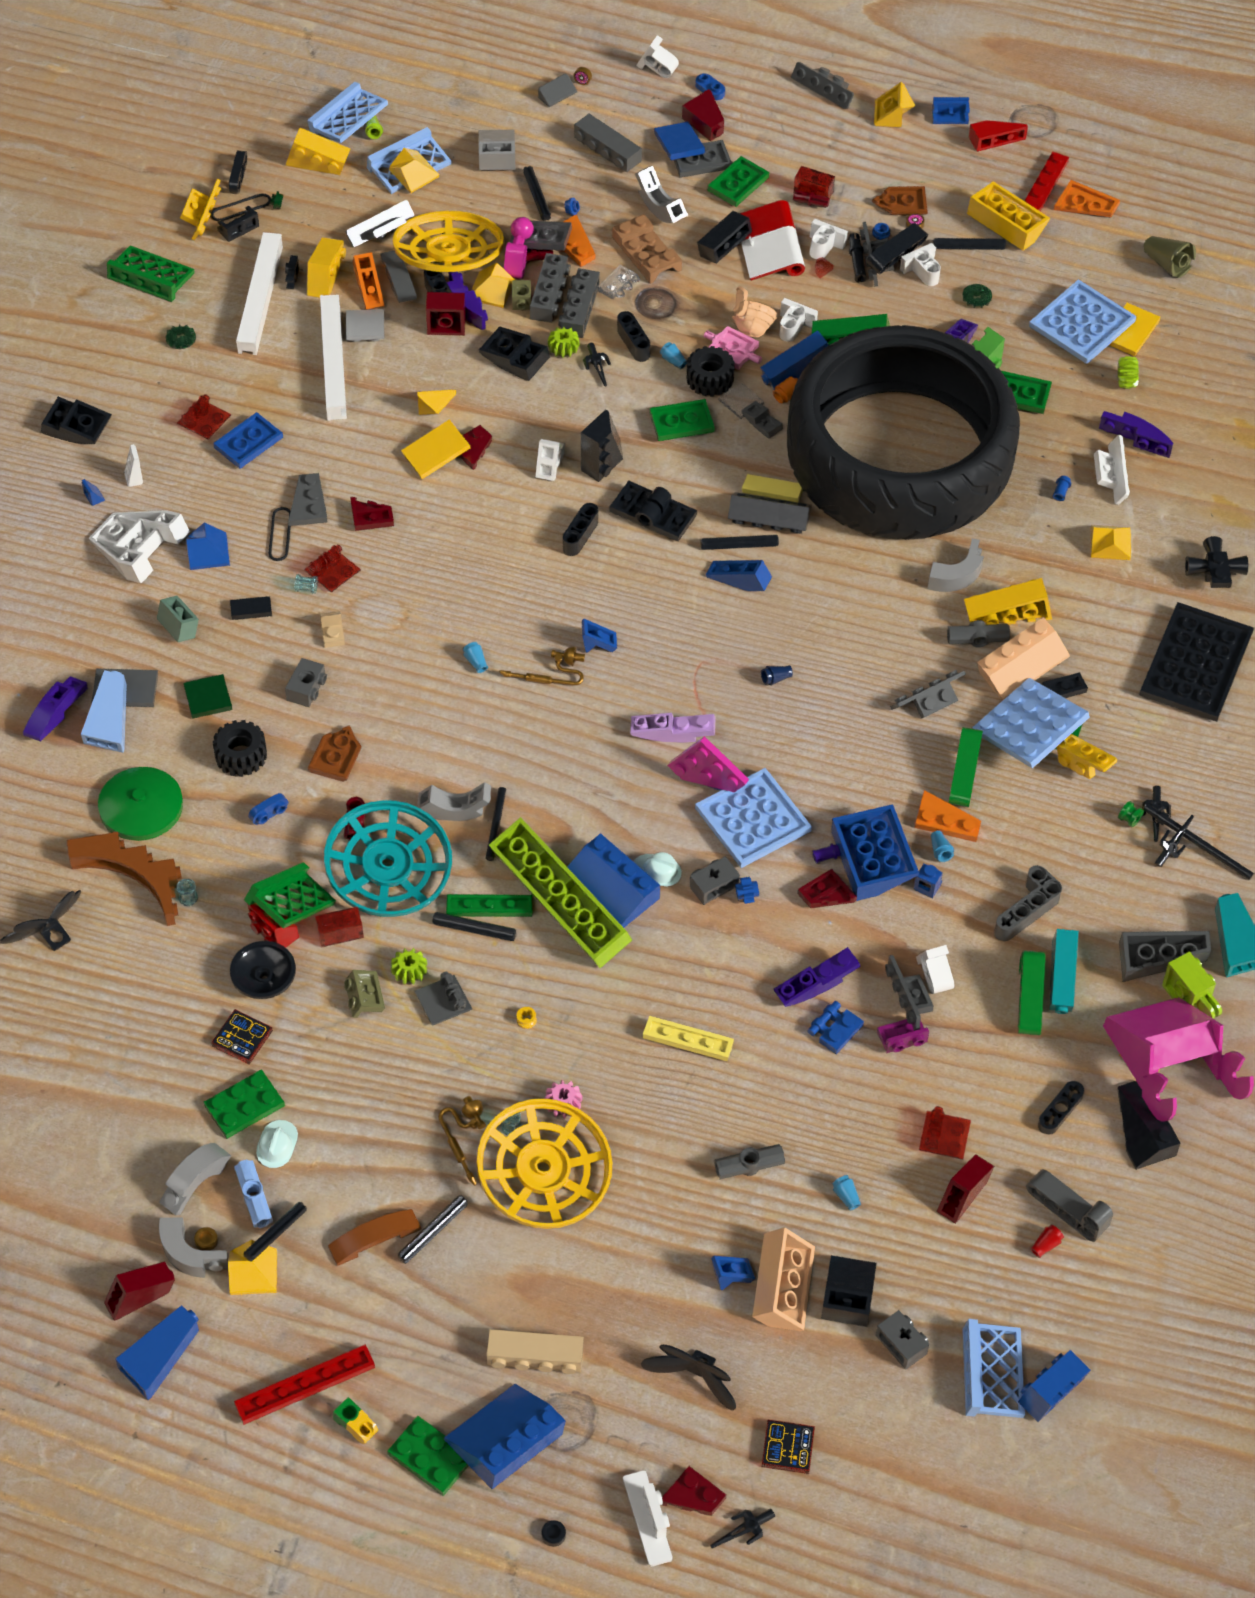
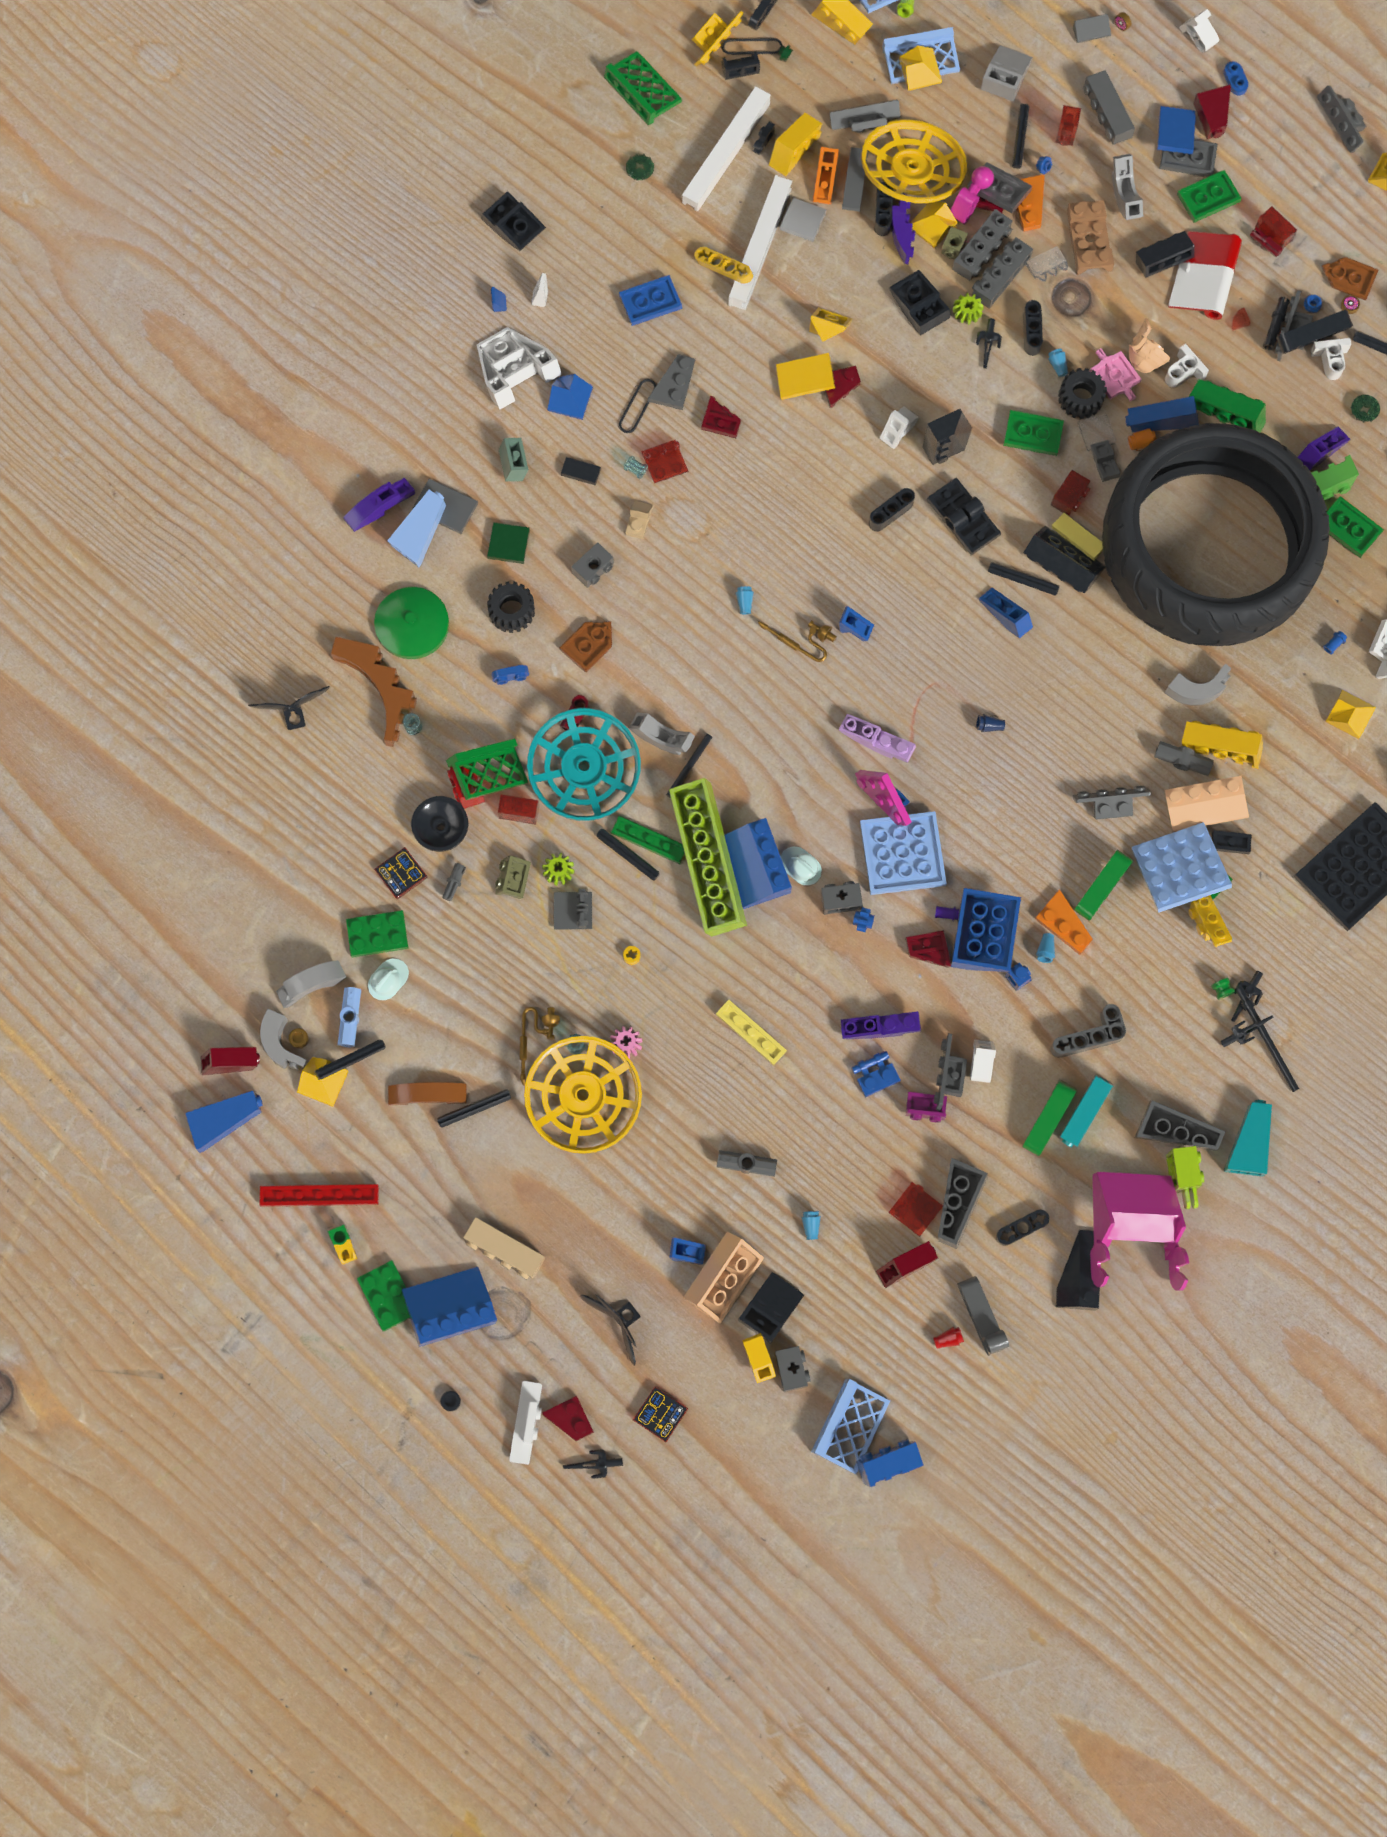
camera: 25 degrees right, 20 degrees up
(203, 417) = (623, 261): clear red hinge -> none
(303, 1021) = (454, 881): none -> dark grey axle
(327, 383) = (723, 265): none -> yellow beam
(445, 313) = (876, 238): dark red brick -> none
(578, 167) = (1068, 125): none -> clear red brick
(745, 454) = (1071, 492): none -> clear red brick
(825, 237) = (1257, 290): white tile -> none
(864, 1339) = (758, 1358): none -> yellow slope
(984, 1101) = (960, 1199): none -> dark grey wedge

